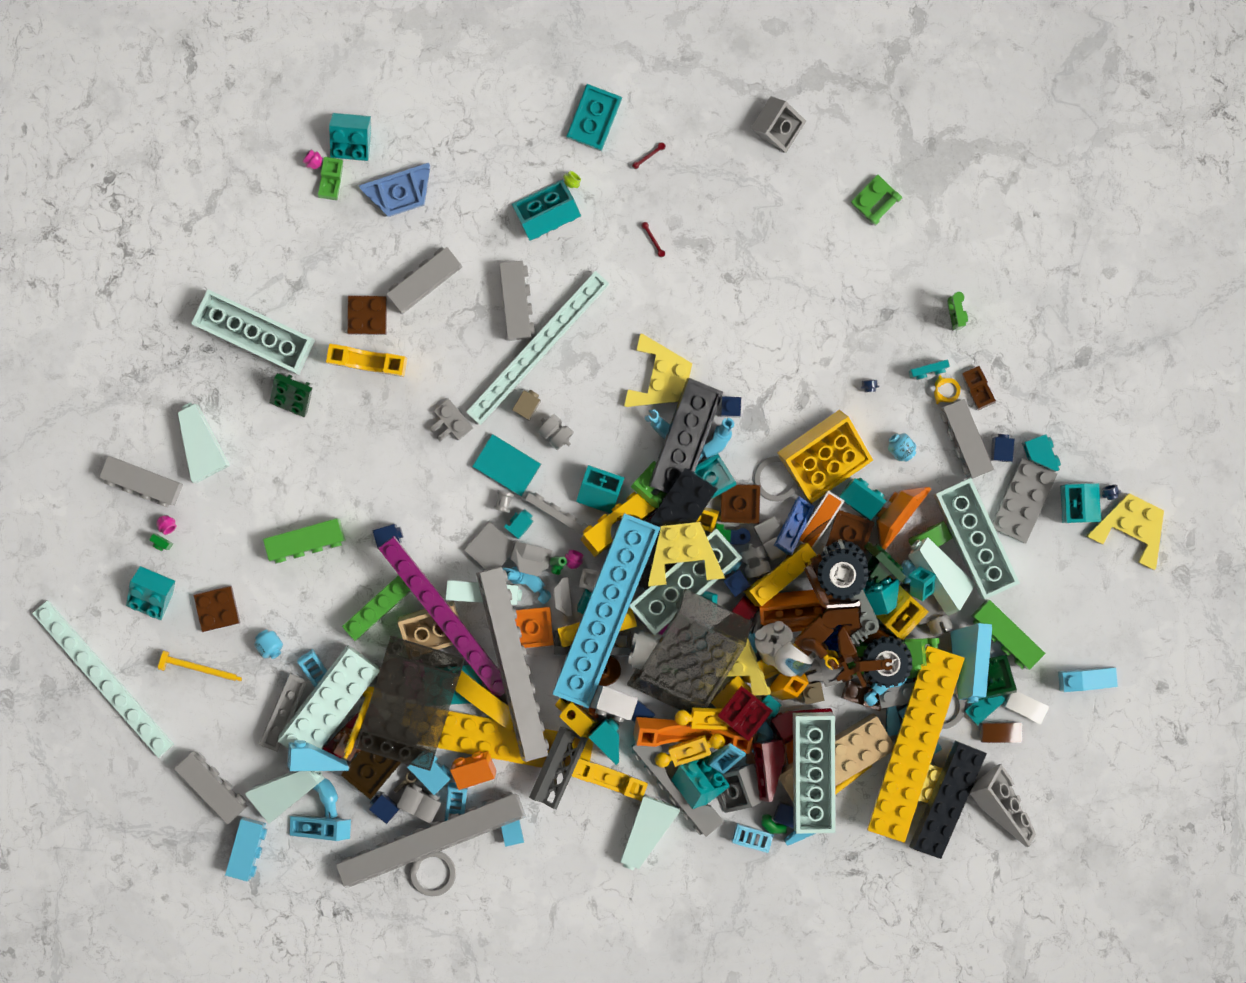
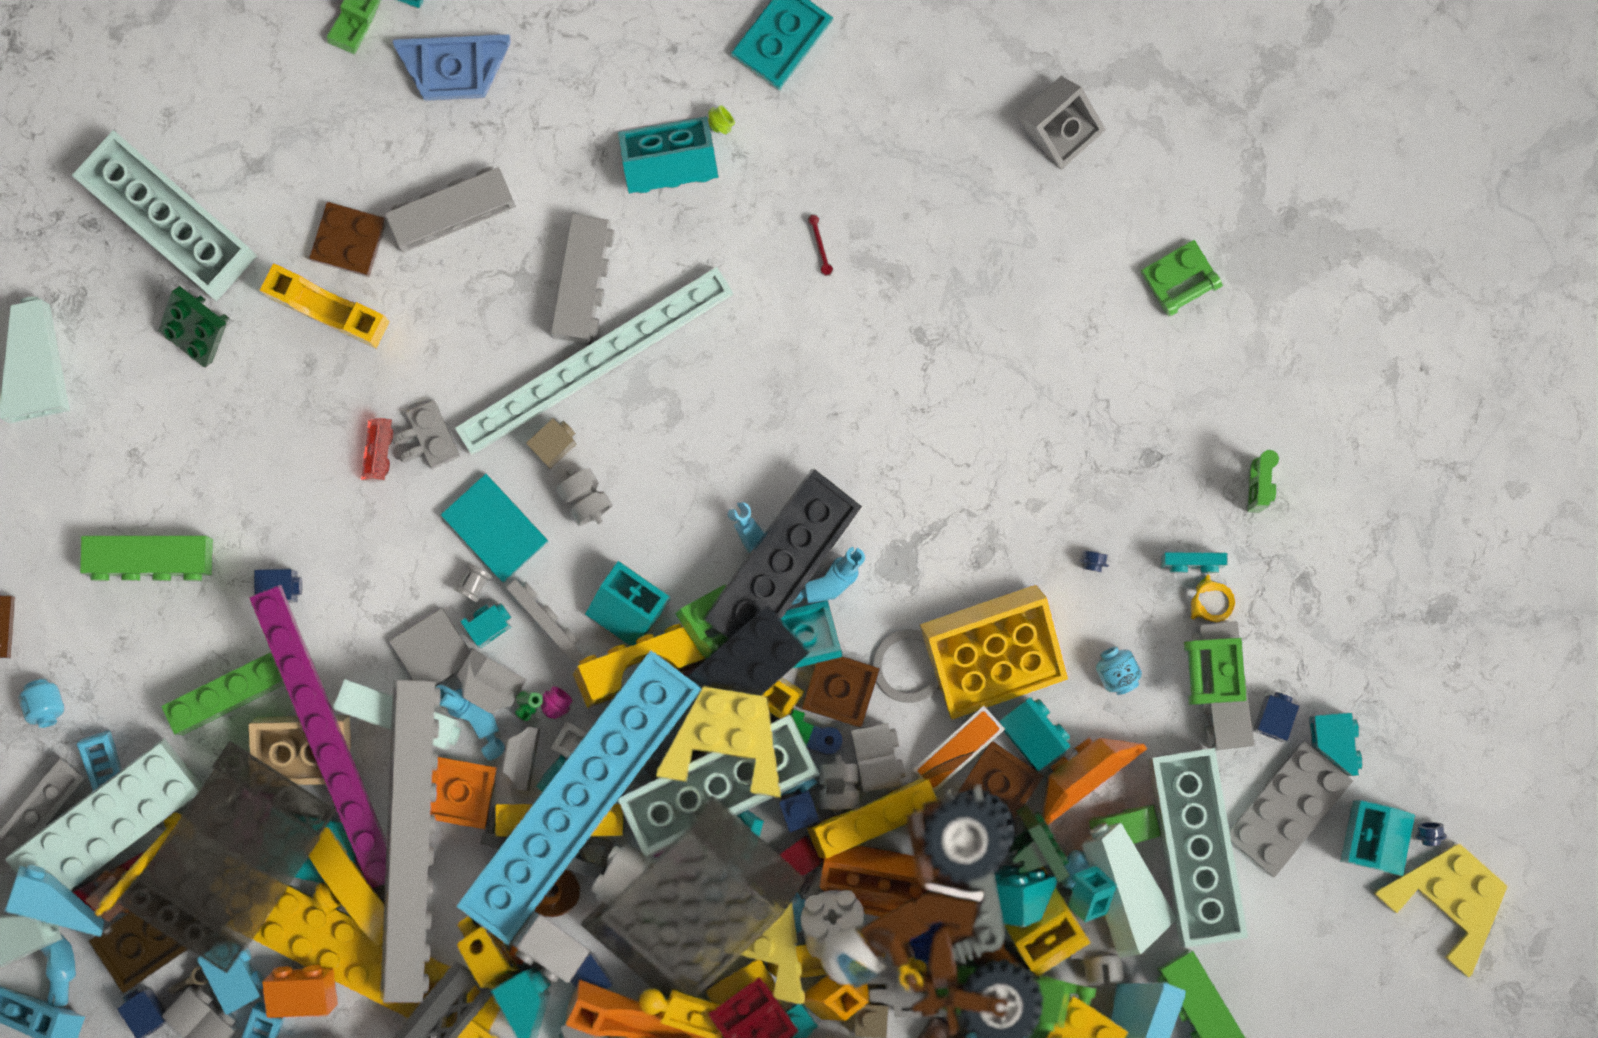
camera: 15 degrees right, 5 degrees down
(422, 437) = (378, 440): none -> clear red plate
(472, 711) = (325, 898): none -> yellow plate
(661, 146) = (872, 108): dark red hinge -> none
(667, 375) = (781, 461): light yellow wing -> none
(731, 407) = (867, 533): dark blue brick -> none
(794, 526) = (915, 746): blue tile -> none
(965, 429) = (1225, 668): none -> bright green plate
(978, 388) = (1263, 611): reddish brown slope -> none

